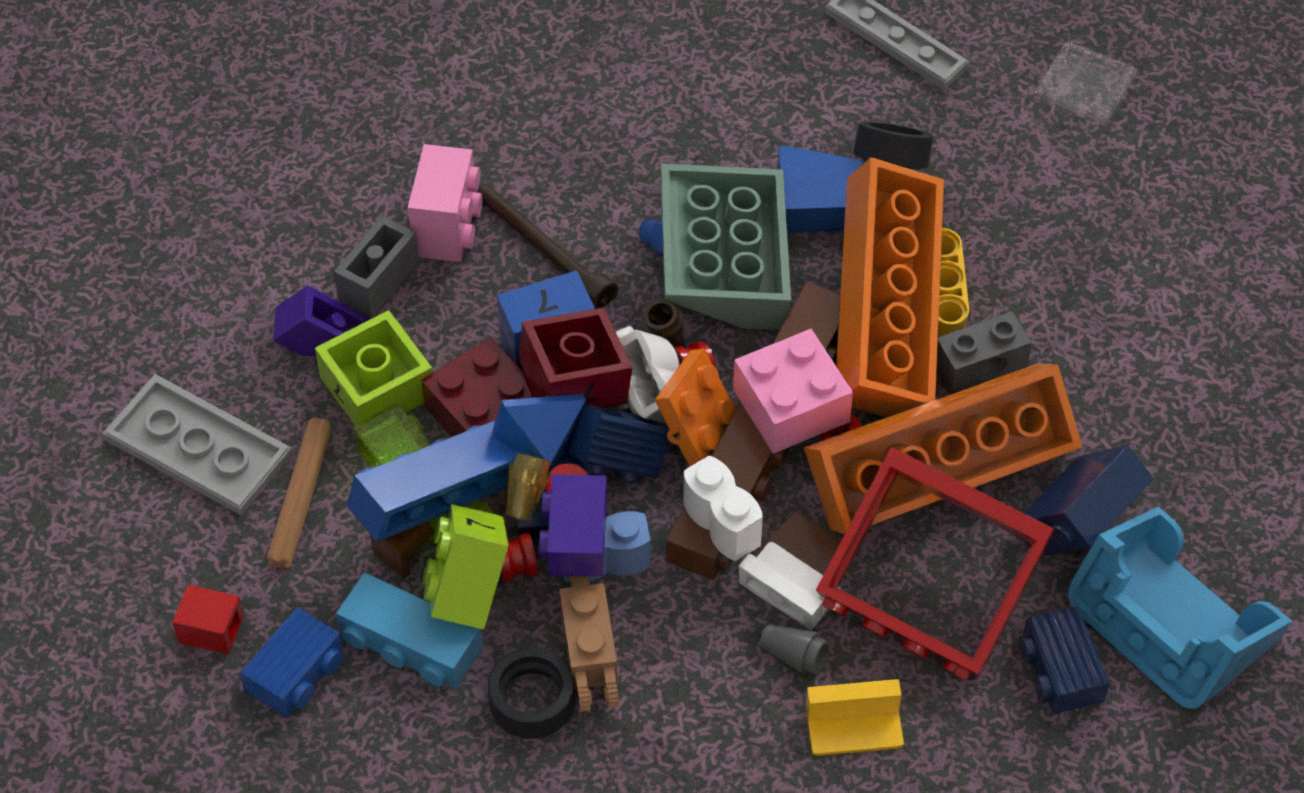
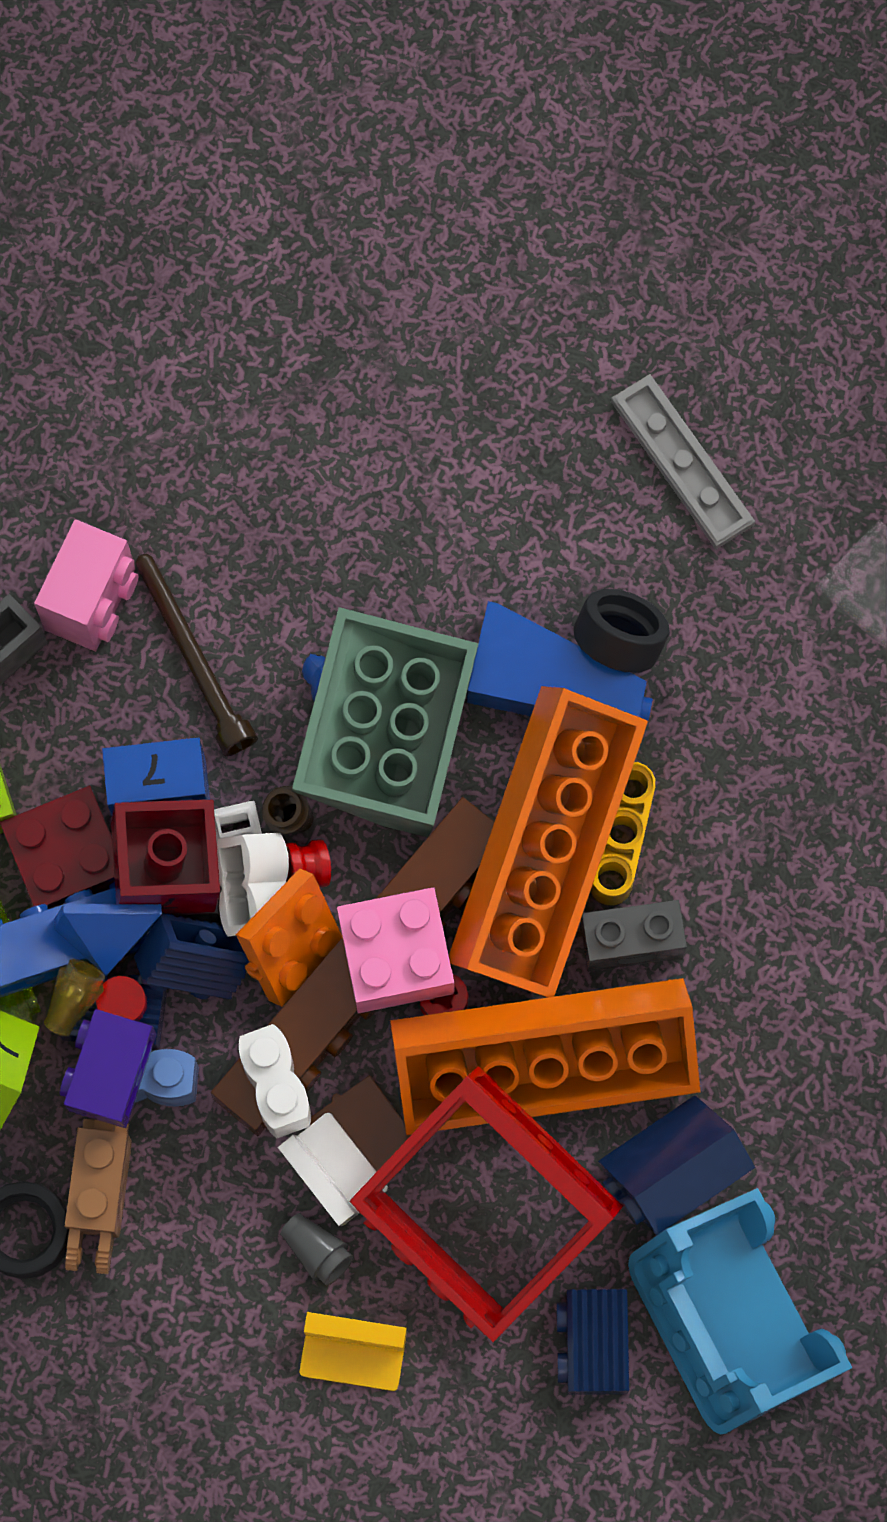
camera: 15 degrees right, 20 degrees up
(519, 559) = (49, 1061): red wheel -> none

